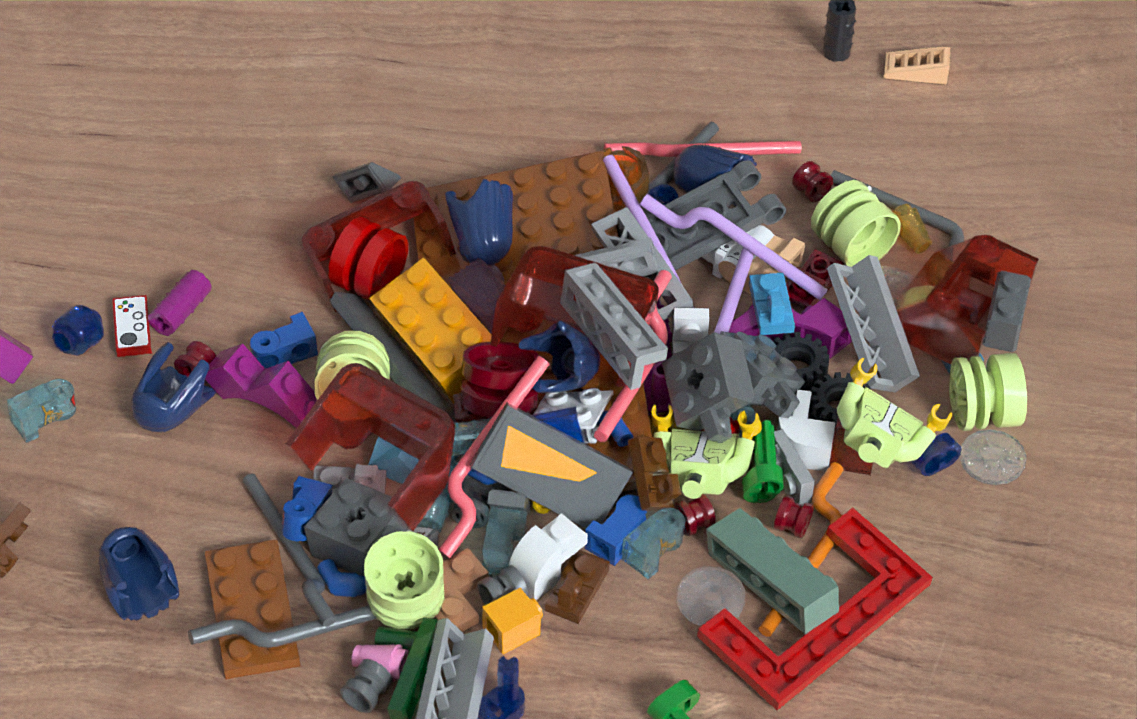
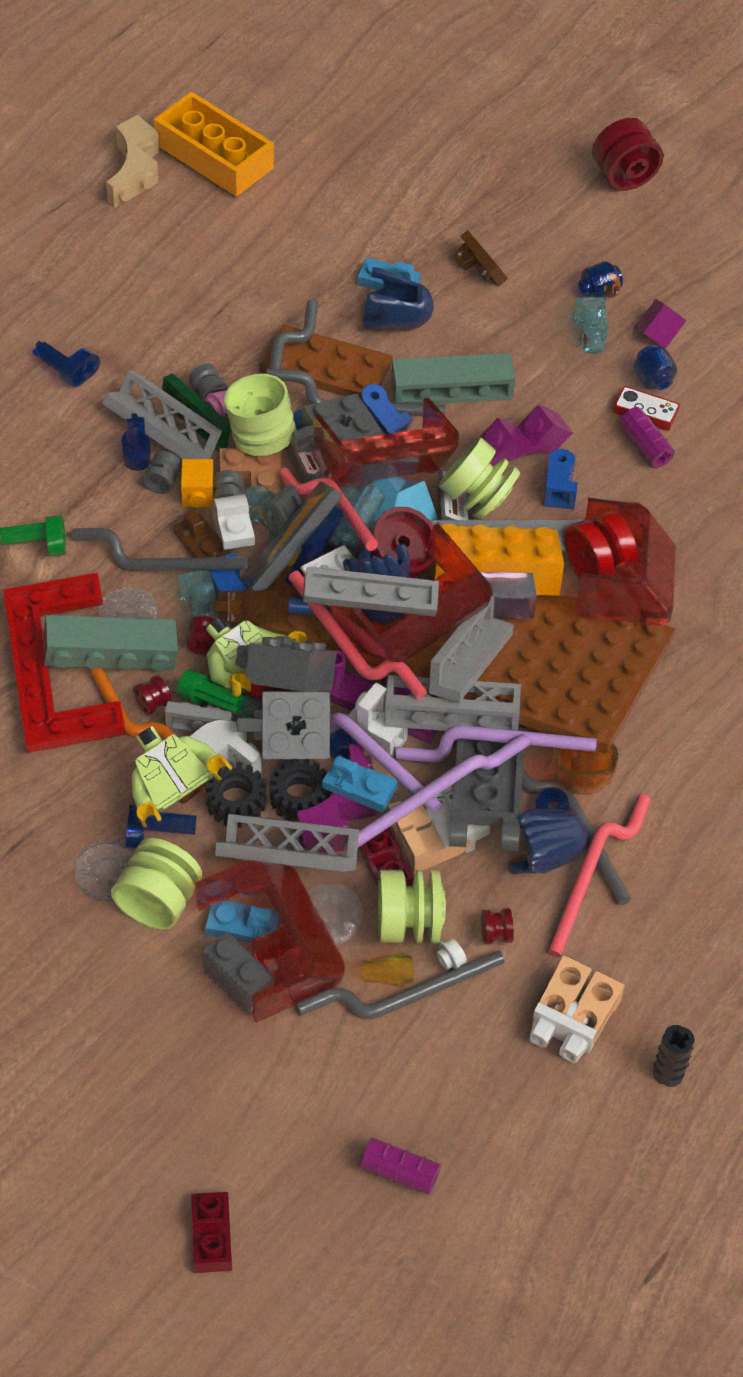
camera: 120 degrees right, 5 degrees up
(78, 617) = (402, 269): none -> dark azure hinge
(165, 396) = (550, 383): dark blue hair -> none
(194, 353) = (577, 419): dark red wheel -> none
(207, 483) = (453, 379): none -> sand green brick
(365, 181) = (697, 592): dark grey slope -> none
(483, 222) = (567, 611): dark blue hair -> none
(528, 656) = (163, 470): none -> dark grey wheel
(640, 595) = (156, 564): none -> dark grey piece
(843, 107) = (573, 1021): none -> hips
(929, 65) = (586, 1143): light nougat slope -> none
(1063, 148) = (400, 1166): none -> magenta axle

